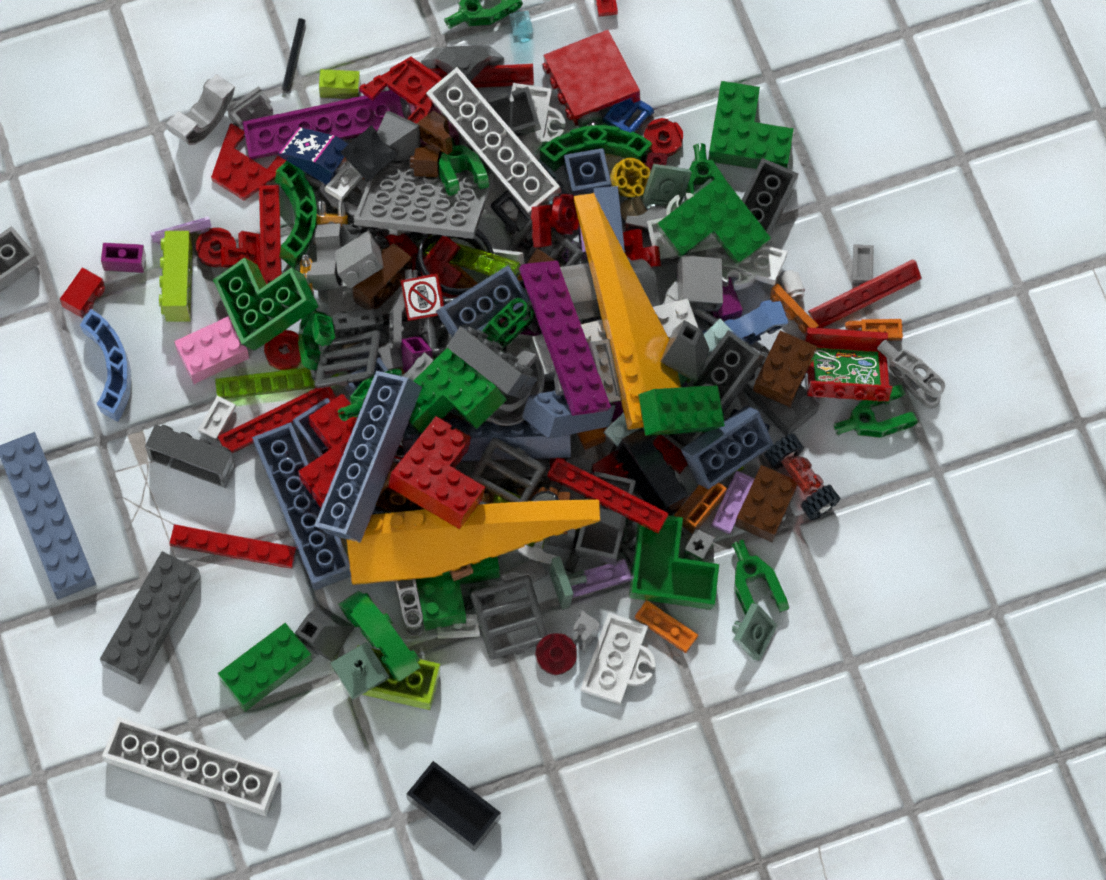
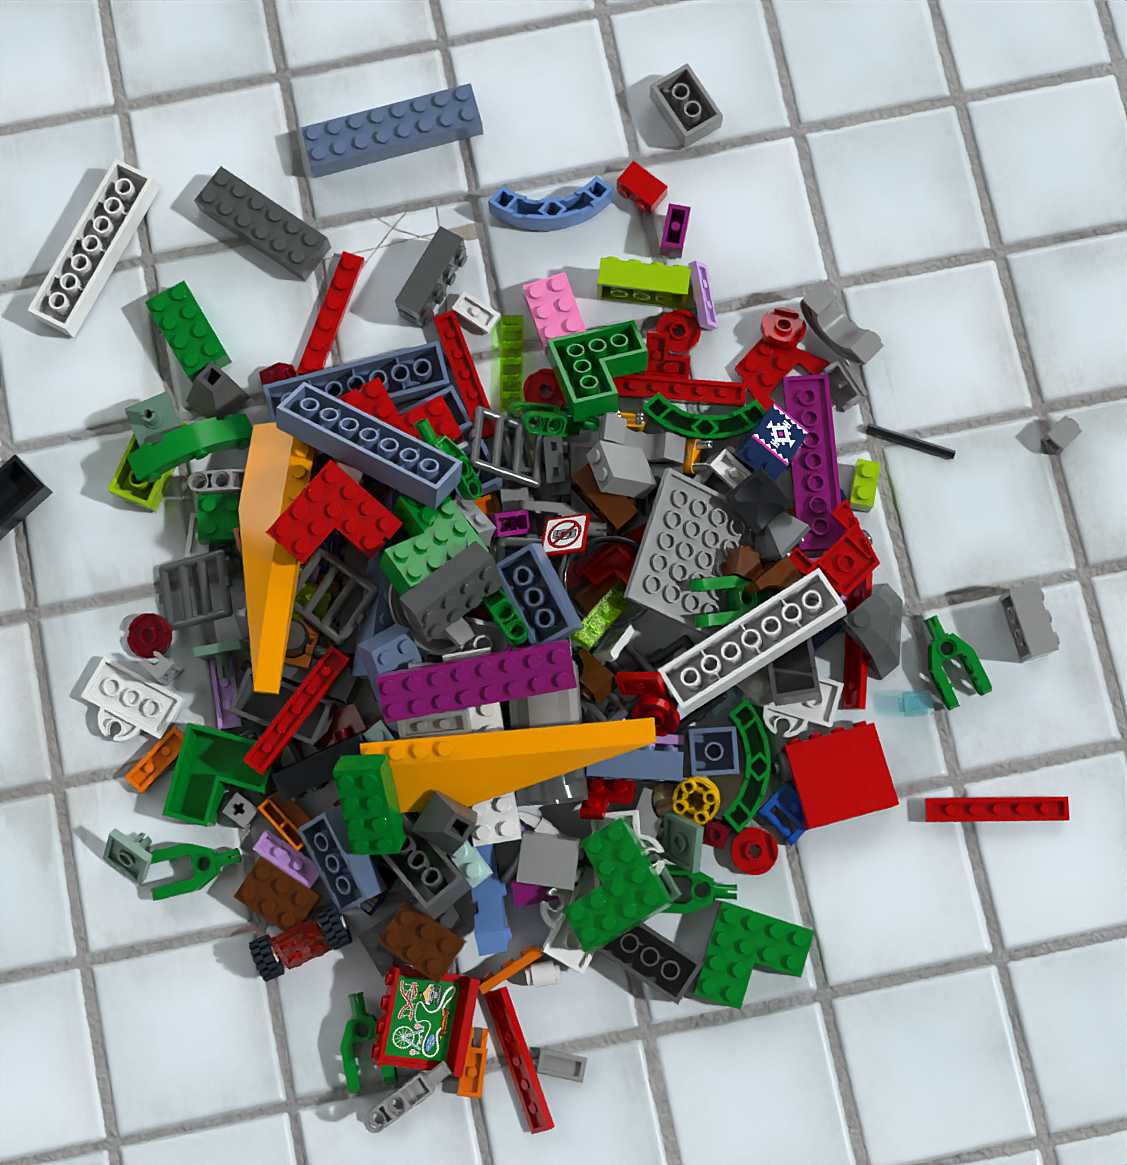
camera: 105 degrees right, 10 degrees up
(211, 167) = (780, 337): none -> red plate
(299, 582) = (276, 373): none -> dark red bracket

